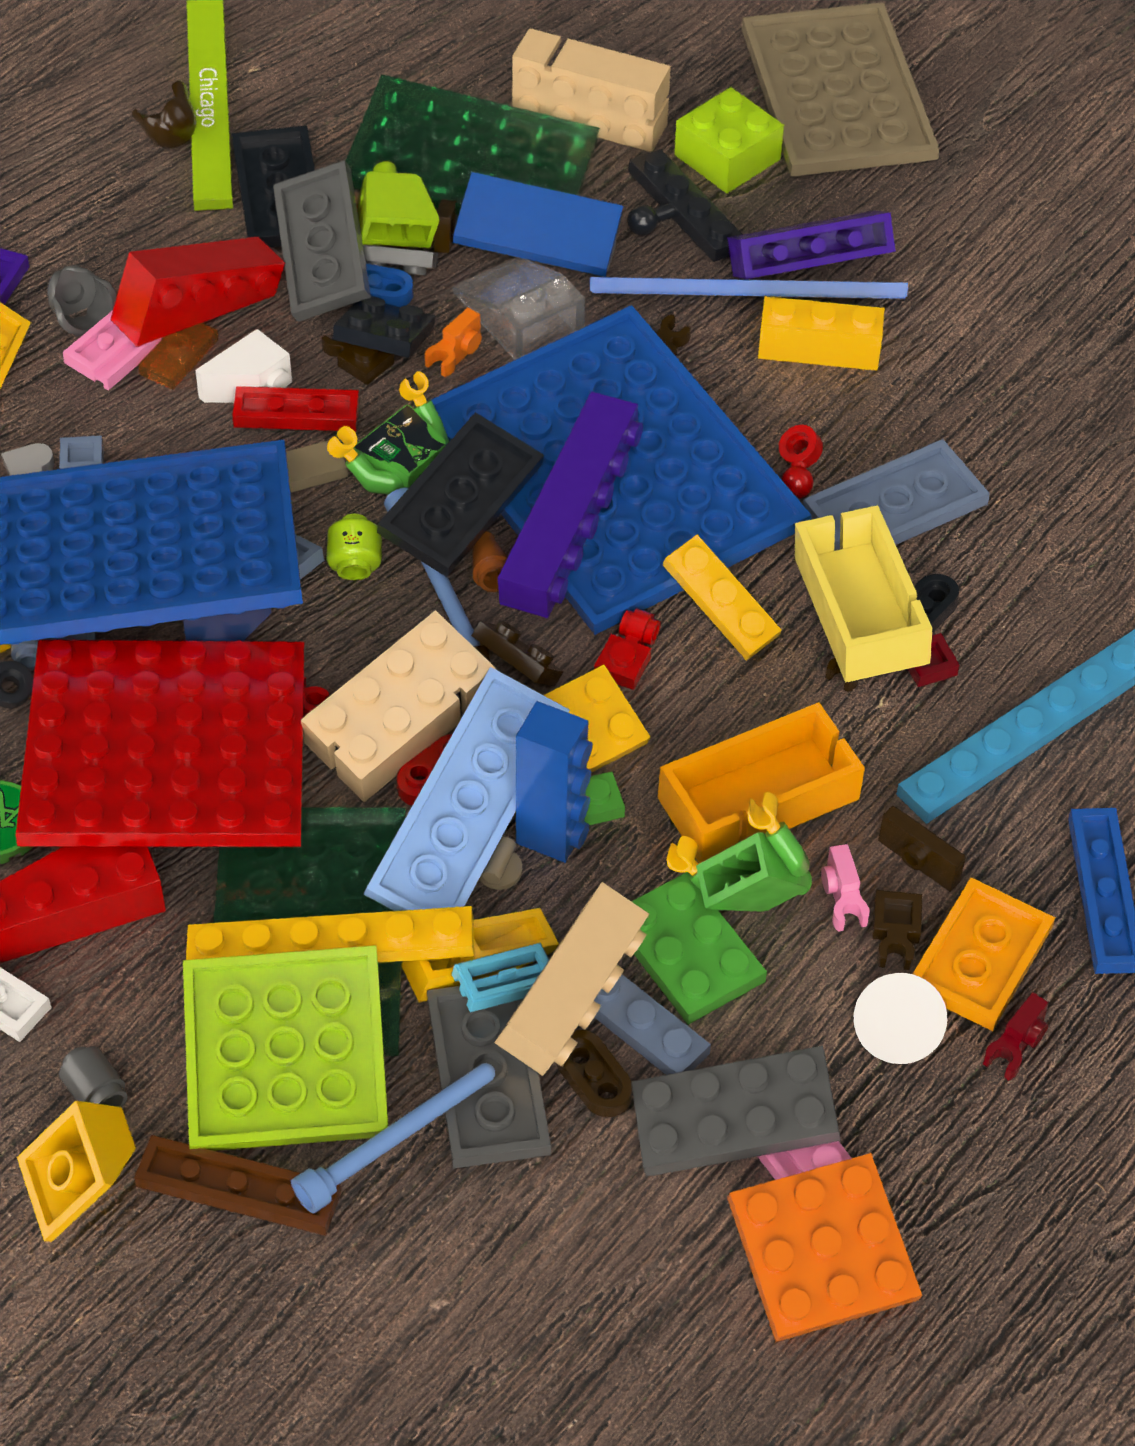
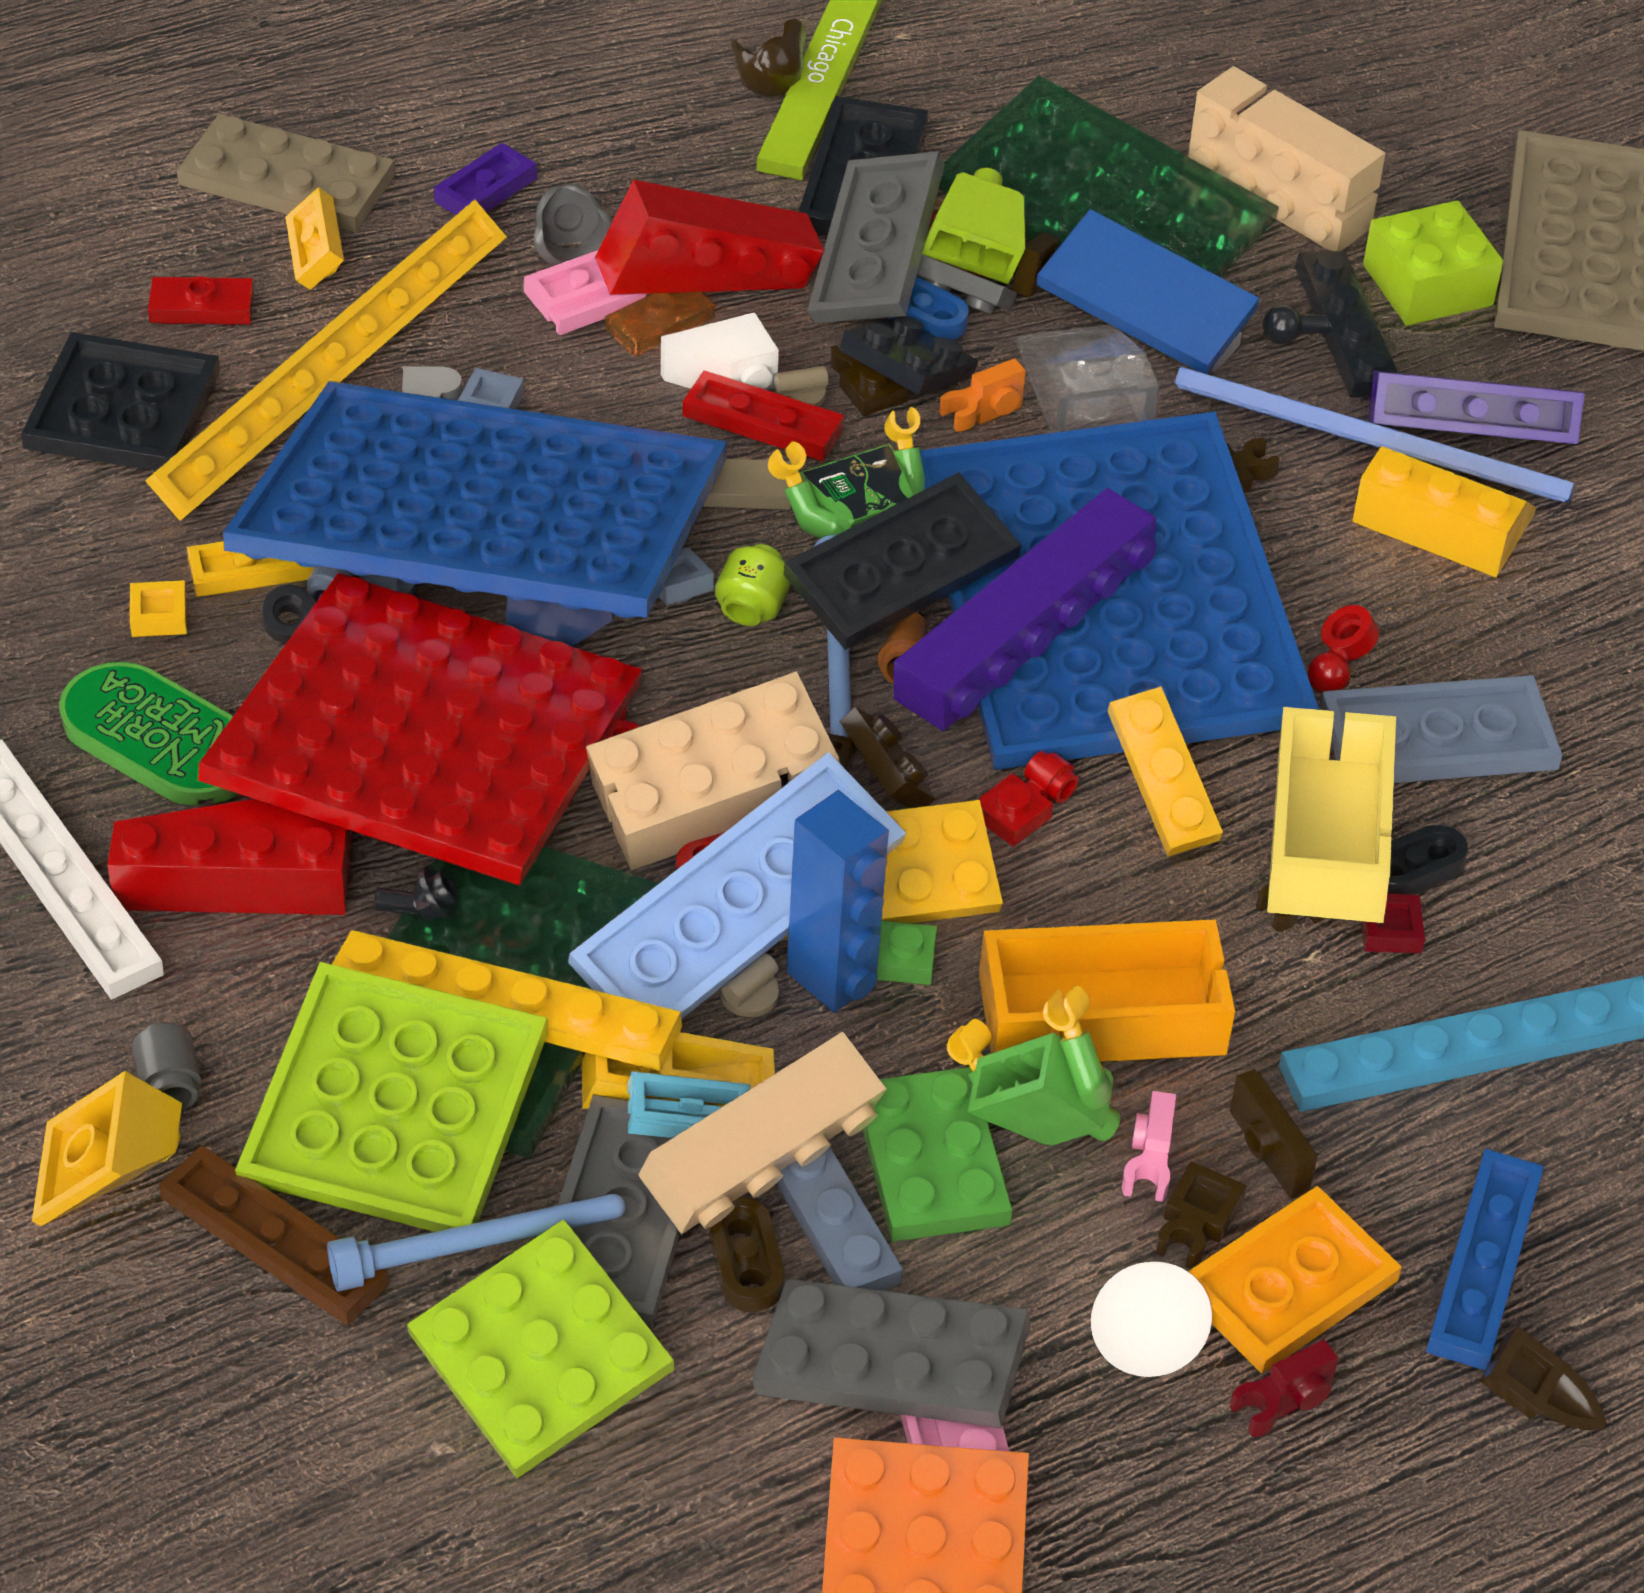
camera: 20 degrees right, 5 degrees down
(236, 878) = (433, 897): none -> black plate
(315, 375) = (803, 384): none -> dark tan plate
(481, 1201) = (540, 1348): none -> lime plate

